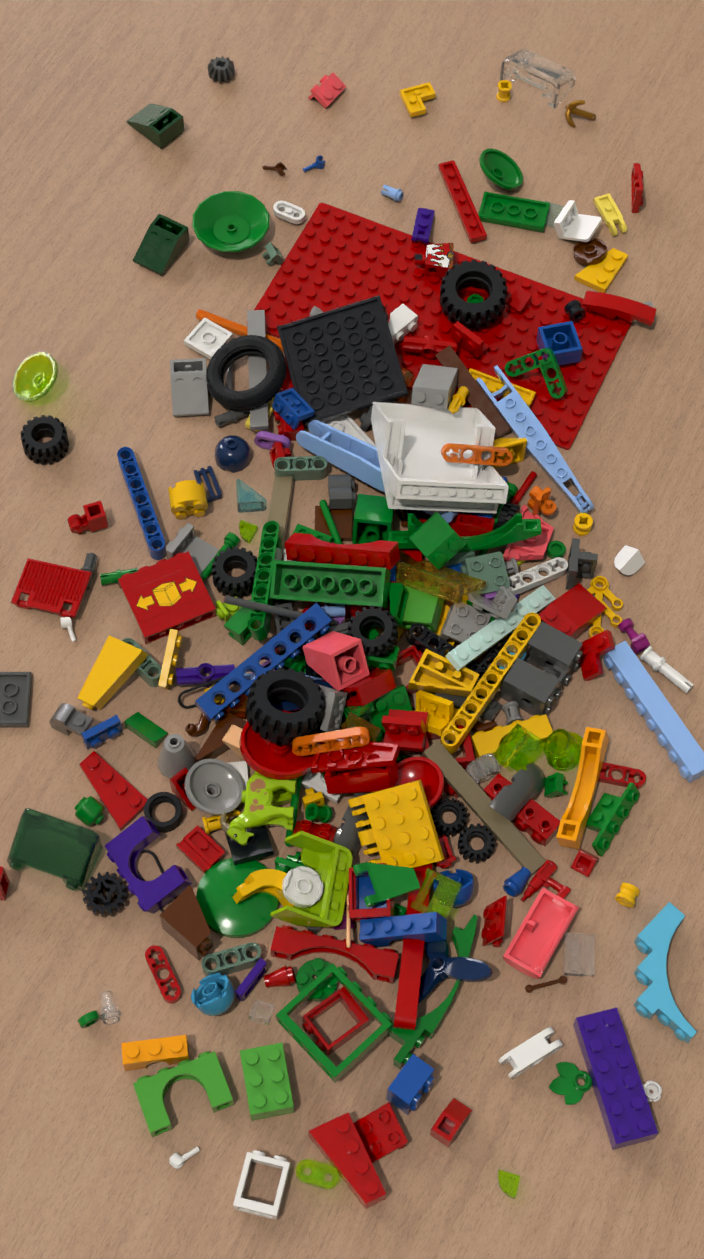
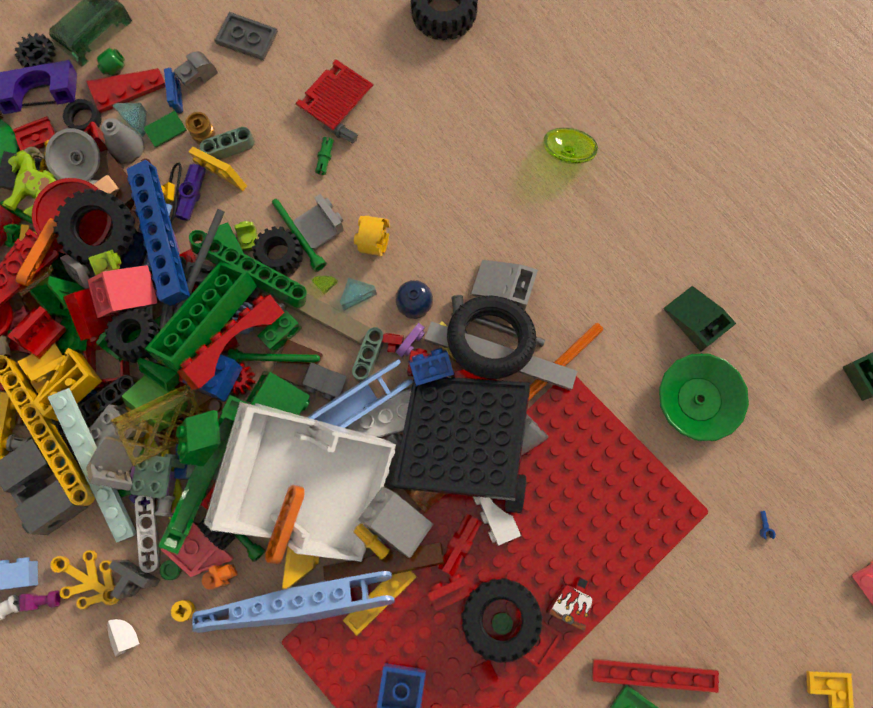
camera: 115 degrees right, 15 degrees up
(42, 428) = (495, 121): black tyre -> none
(67, 623) = (296, 97): white hand -> none
(93, 519) = (391, 146): red brick -> none
(111, 670) = (224, 113): yellow slope -> none
(134, 690) = (199, 127): none -> pearl gold wheel
(144, 761) = (133, 114): none -> clear light blue slope
(145, 509) = (384, 192): blue beam -> none
(167, 596) = (279, 182): red panel -> none
(203, 472) = (387, 264): dark blue tile -> none
(207, 338) = (561, 324): white plate -> none
(274, 254) = (649, 431): sand green tile -> none
(279, 167) = (772, 481): reddish brown hand -> none
(290, 212) = (702, 470): white plate -> none
(315, 672) = (105, 262): none -> lime bracket
(395, 194) = (694, 598): light blue pin -> none
(423, 225) = (633, 612): dark purple plate -> none
(524, 488) = (250, 564): red bar -> none
(544, 366) = (382, 657): green beam -> none
(573, 611) = (85, 547): red slope -> none
(592, 650) = (37, 548): red plate -> none

